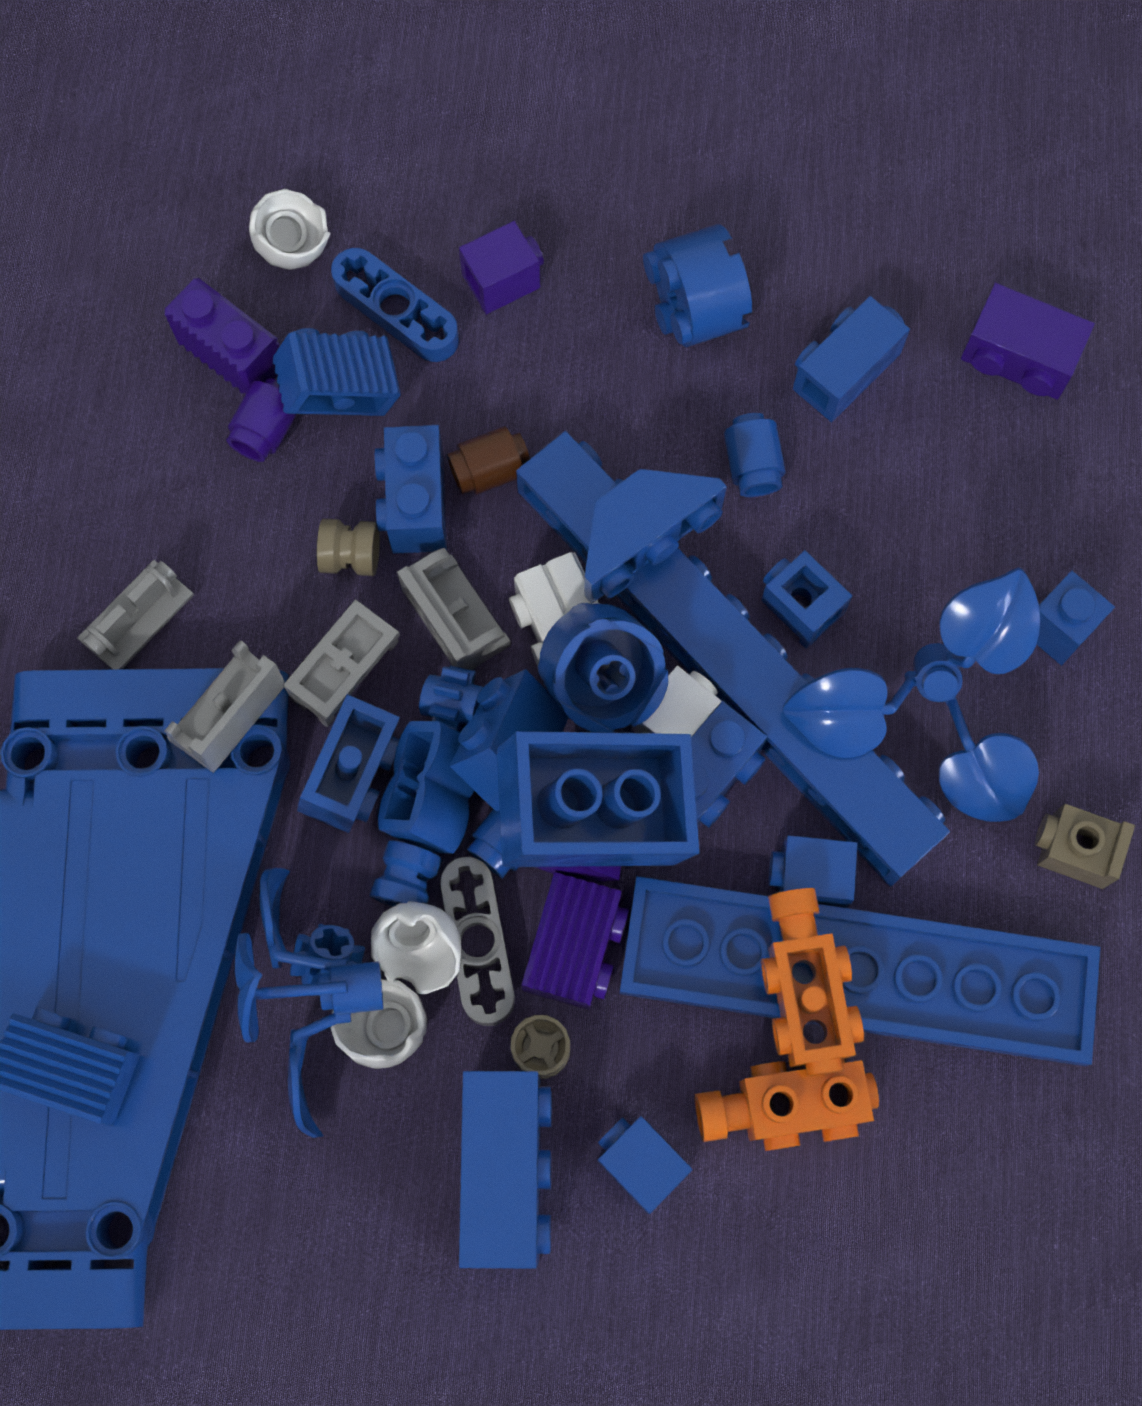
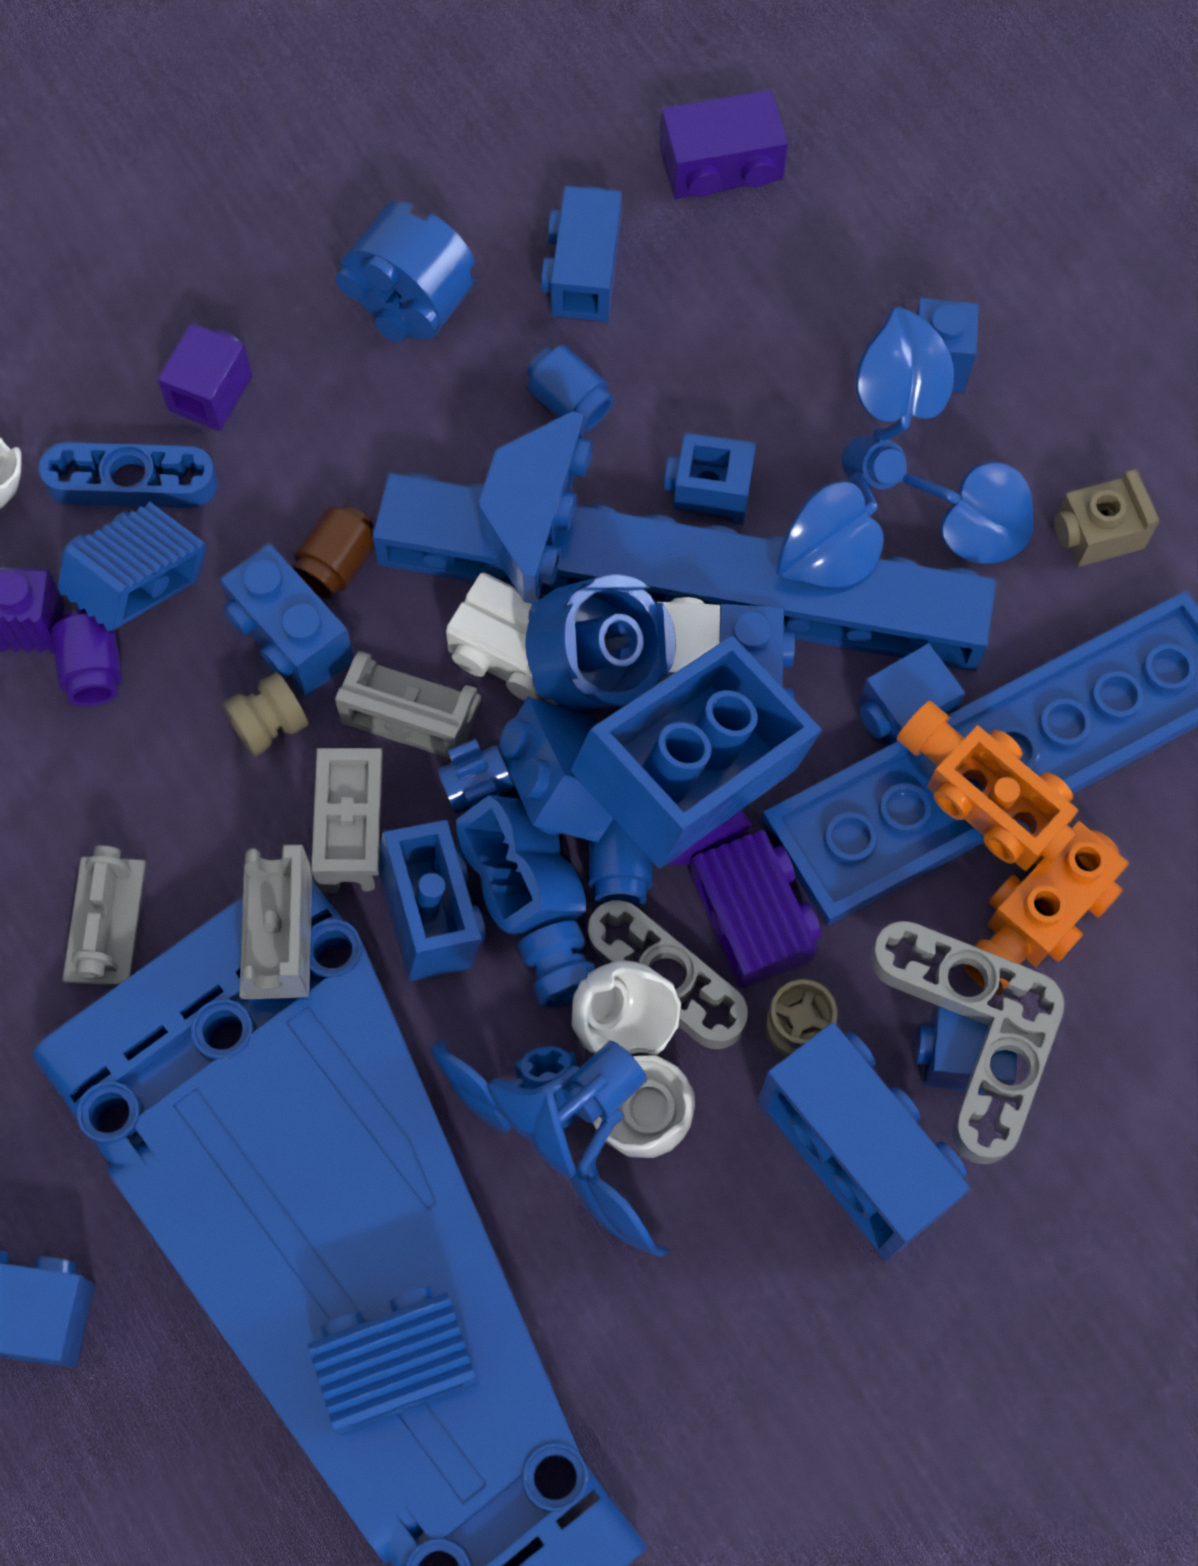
camera: 40 degrees left, 5 degrees down
(667, 1173) = (1005, 1025): none -> light grey beam

